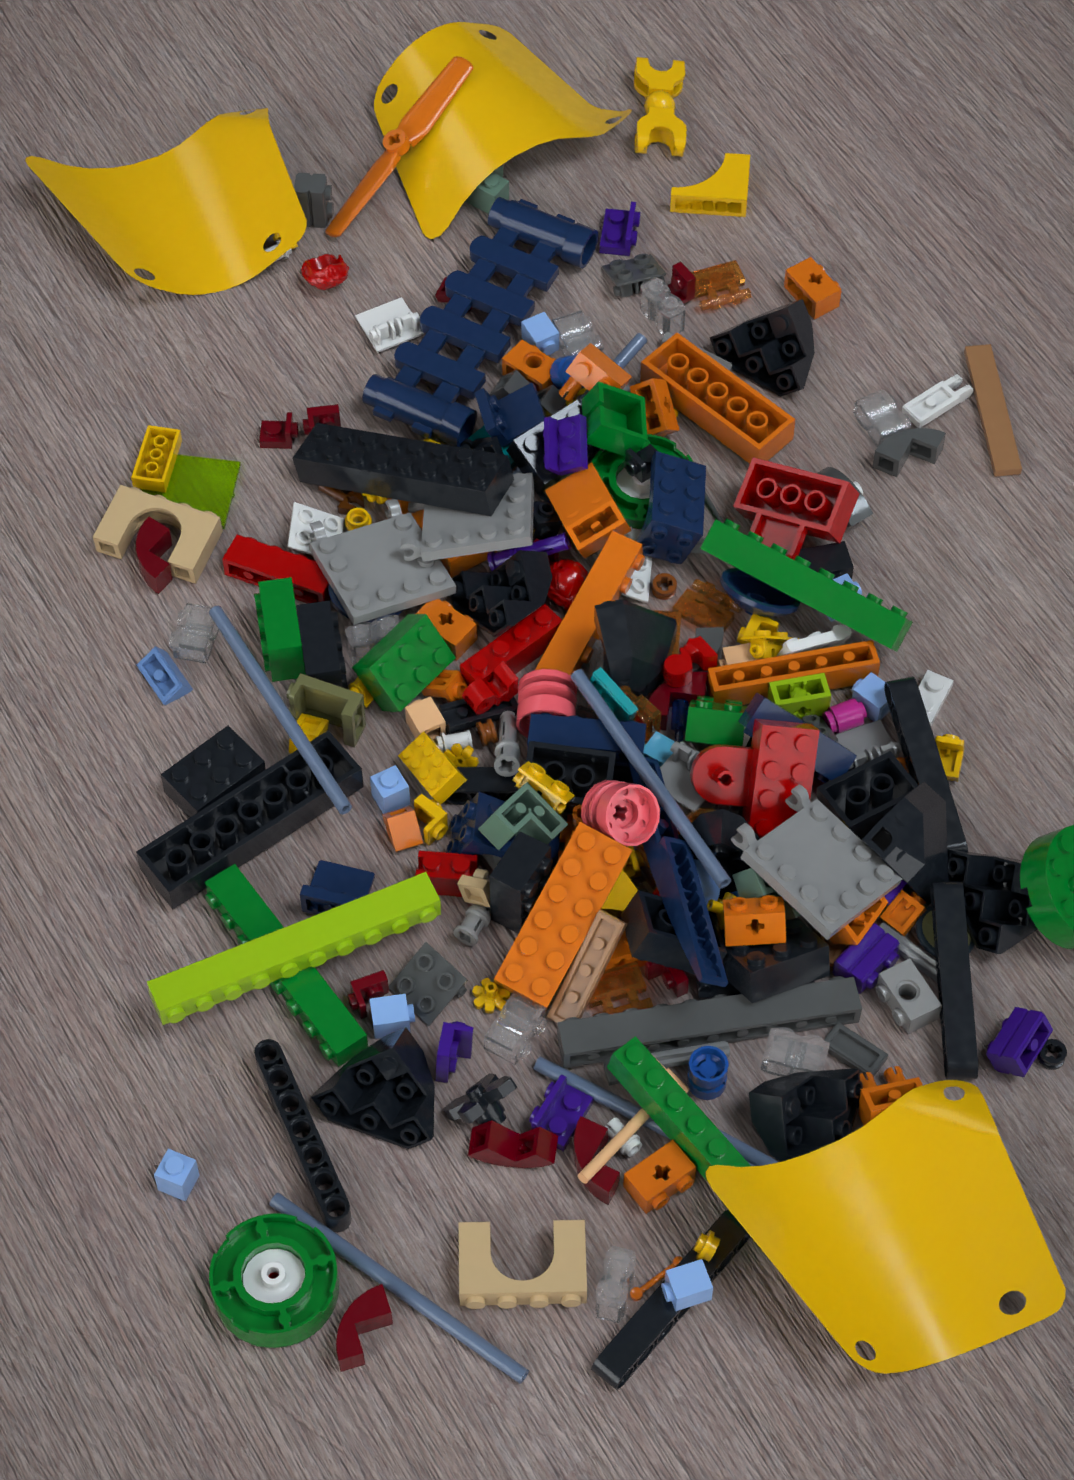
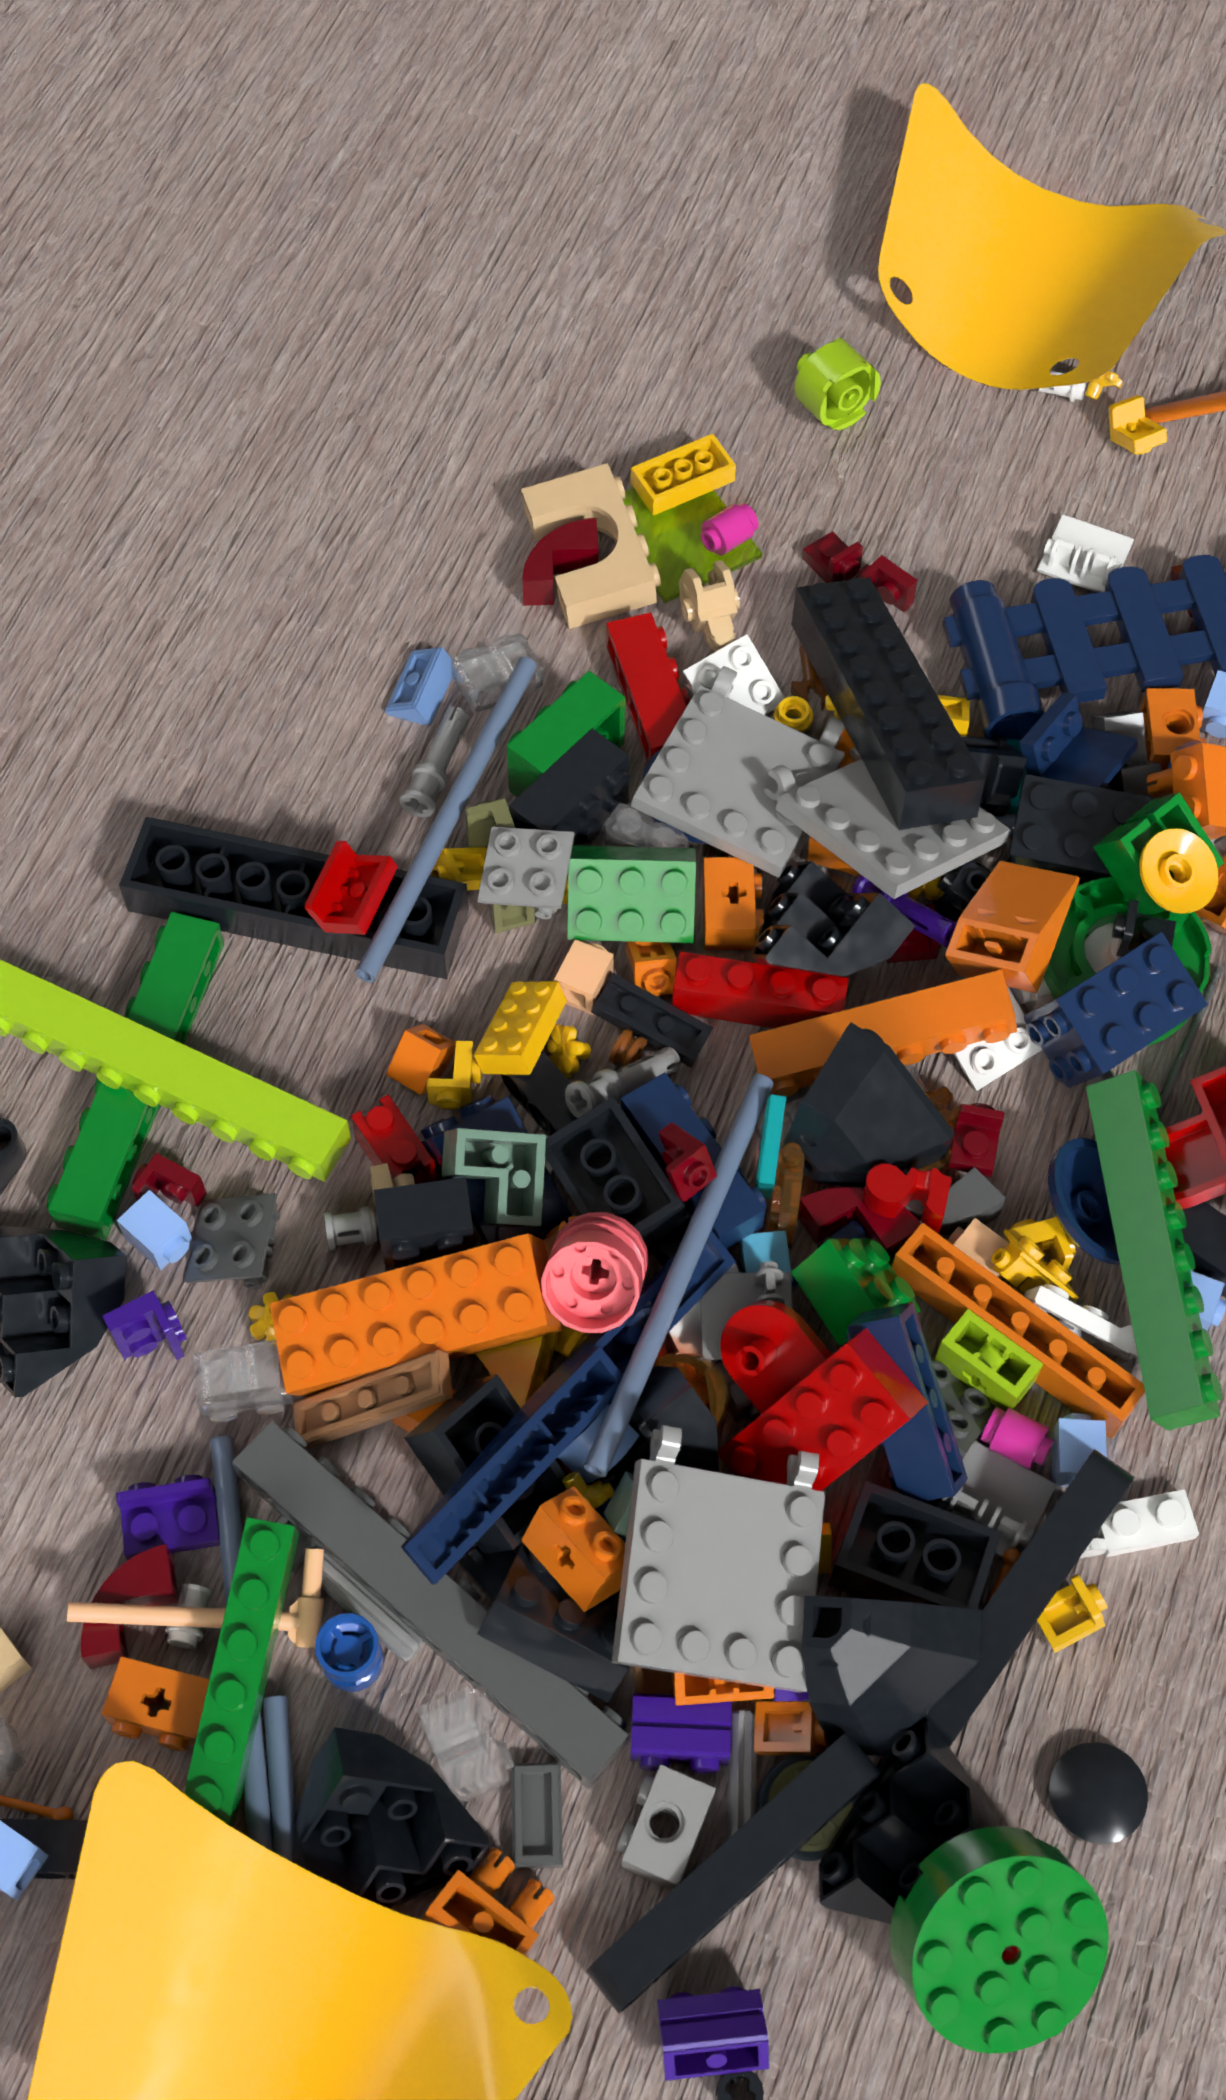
camera: 50 degrees right, 5 degrees up
(174, 347) = (836, 384): none -> lime brick
(211, 771) = (319, 809): black brick -> none
(215, 463) = (729, 528): none -> dark pink brick
(230, 708) = (430, 775): none -> light grey pin
(258, 505) = (711, 606): none -> tan hinge
(288, 781) = (349, 890): none -> red bracket
(314, 198) = (1160, 361): dark grey brick -> none
(325, 271) = (1086, 444): red hair -> none
(334, 886) = (282, 1050): dark blue bracket -> none
(336, 244) = (1131, 427): none -> yellow bracket
(355, 691) = (526, 869): none -> light grey hinge
(390, 790) = (456, 1007): light blue brick -> none
(446, 741) = (586, 1025): white pin -> none
(482, 1101) = (105, 1416): black plant -> none
(483, 694) = (667, 1006): red leg -> none
(507, 1148) = (77, 1496): dark red brick -> none
(544, 692) = (713, 1076): coral wheel -> none
(553, 791) = (566, 1156): yellow hinge -> none
(565, 444) = (1069, 828): dark purple bracket -> none
(566, 582) = (907, 972): red hair -> none
(596, 730) = (687, 1161): none -> dark red bracket
(620, 983) = (388, 1449): clear orange plate -> none
(636, 416) = (1192, 867): none -> yellow dish
(657, 590) = (1012, 1079): dark orange bush -> none
(685, 616) = (976, 1138): none -> dark red bracket
(701, 611) = (1017, 1164): clear orange plate -> none
(706, 1246) = (71, 1838): yellow plate -> none
(1036, 811) = (1098, 1793): none -> black dish

